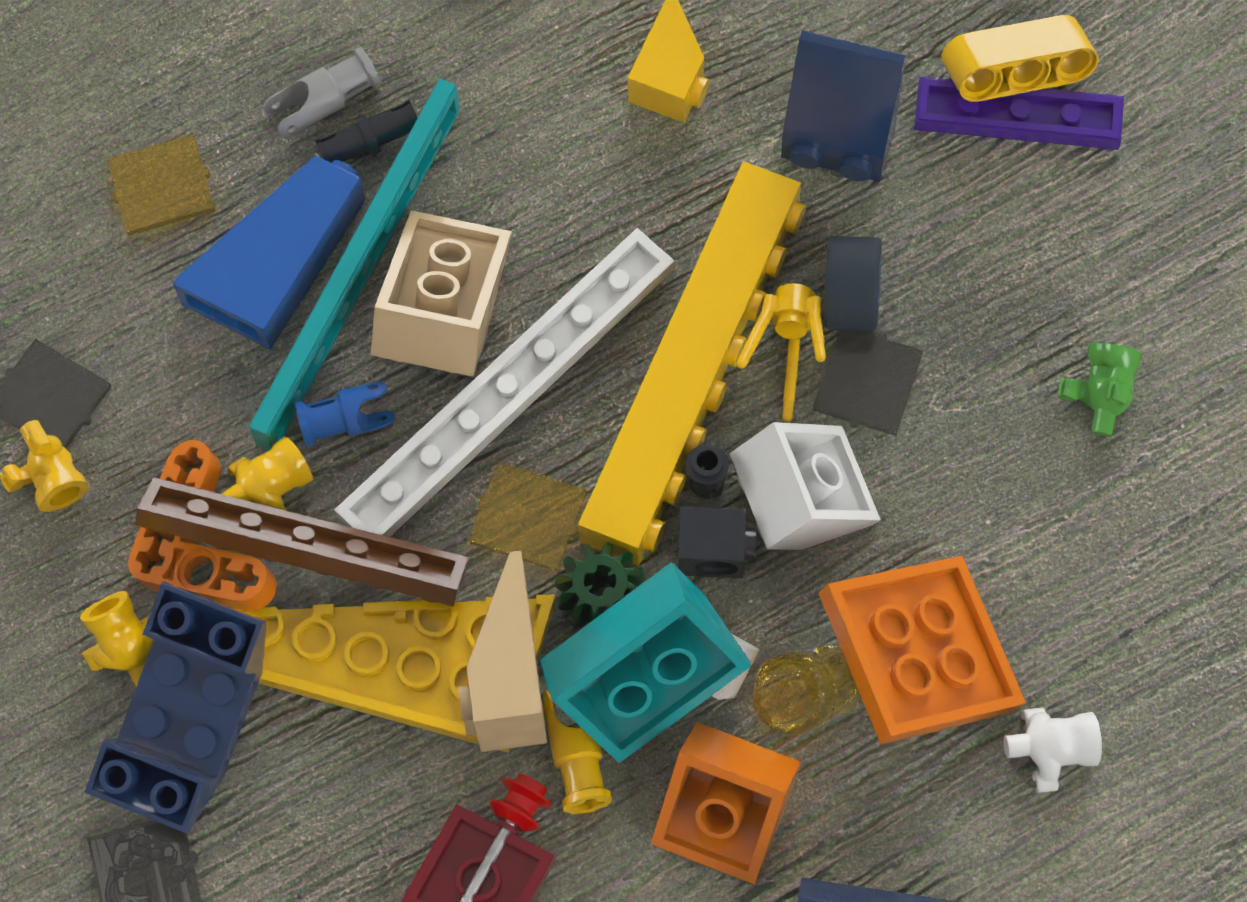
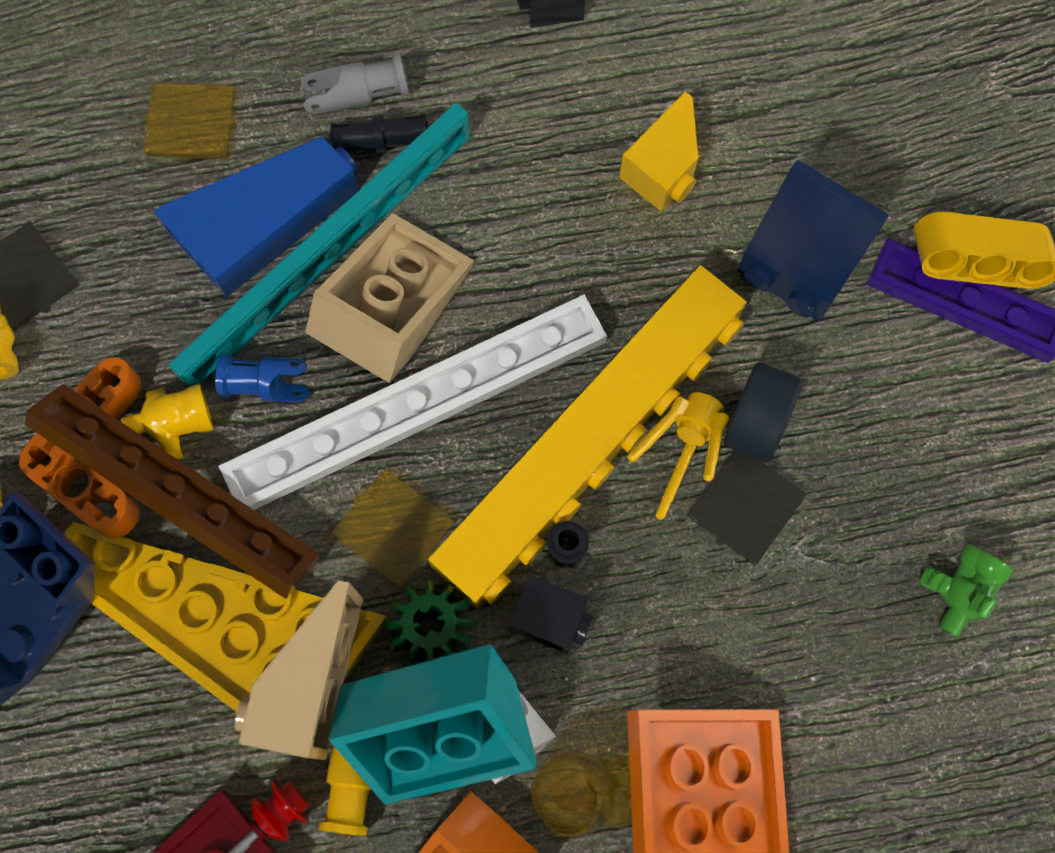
camera: 15 degrees right, 5 degrees up
(803, 485) = (652, 588): white slope -> none

